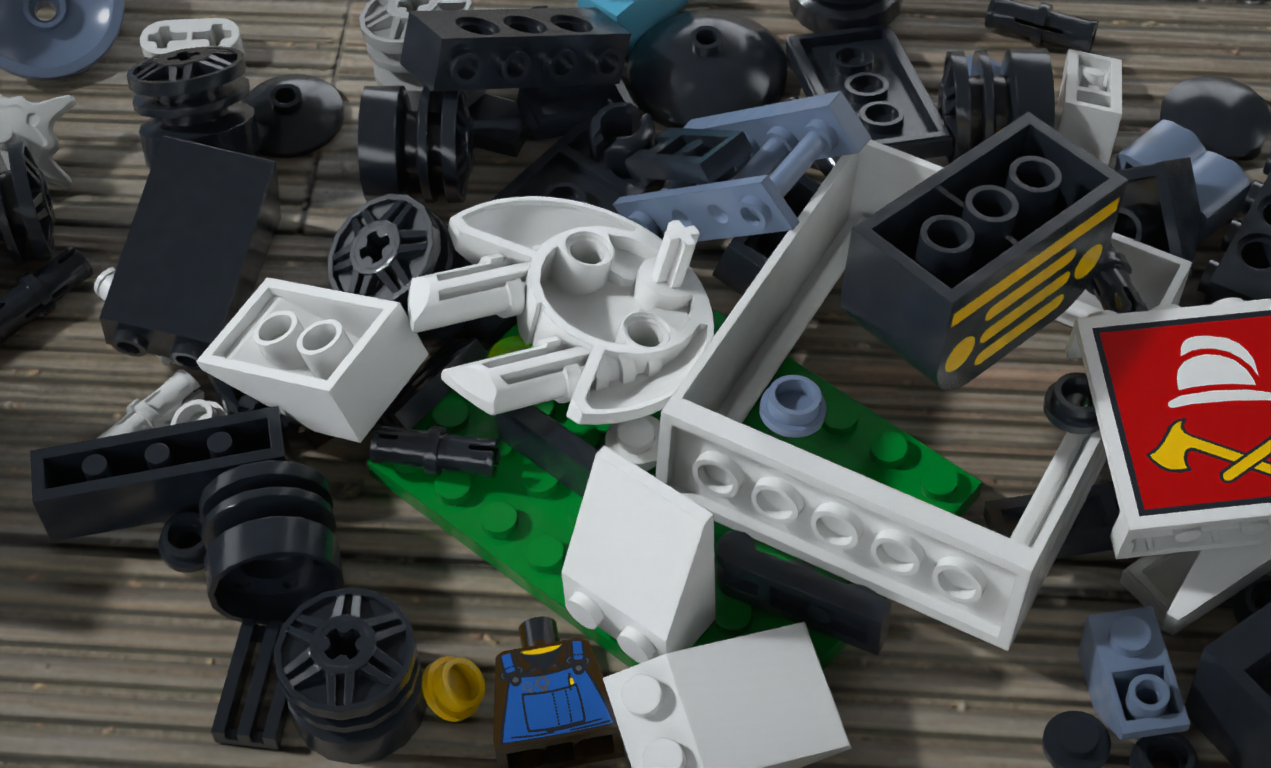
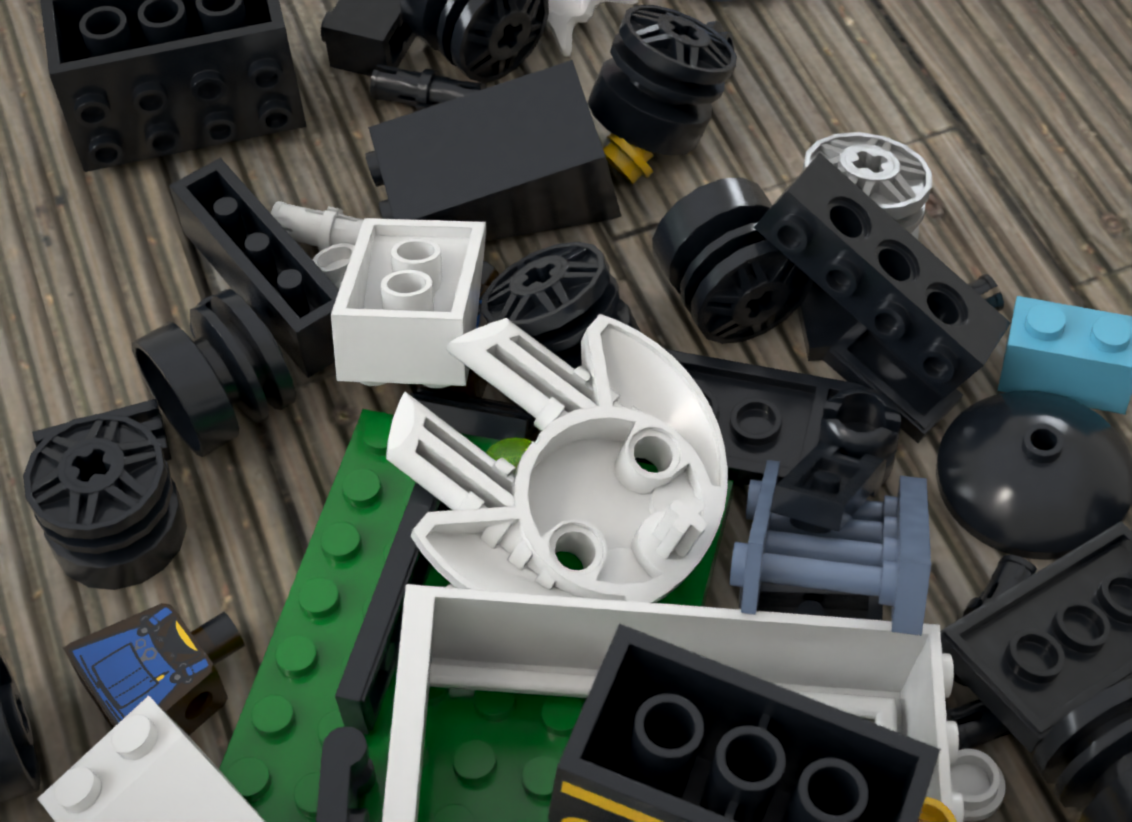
camera: 65 degrees right, 0 degrees up
(189, 34) = (785, 47): white beam -> none
(295, 114) = (750, 152): black dish -> none
(435, 450) = (369, 450): black pin -> none
(453, 687) = (140, 586): yellow plate -> none
(640, 561) = (276, 673): white slope -> none
(793, 406) = (468, 704): sand blue plate -> none

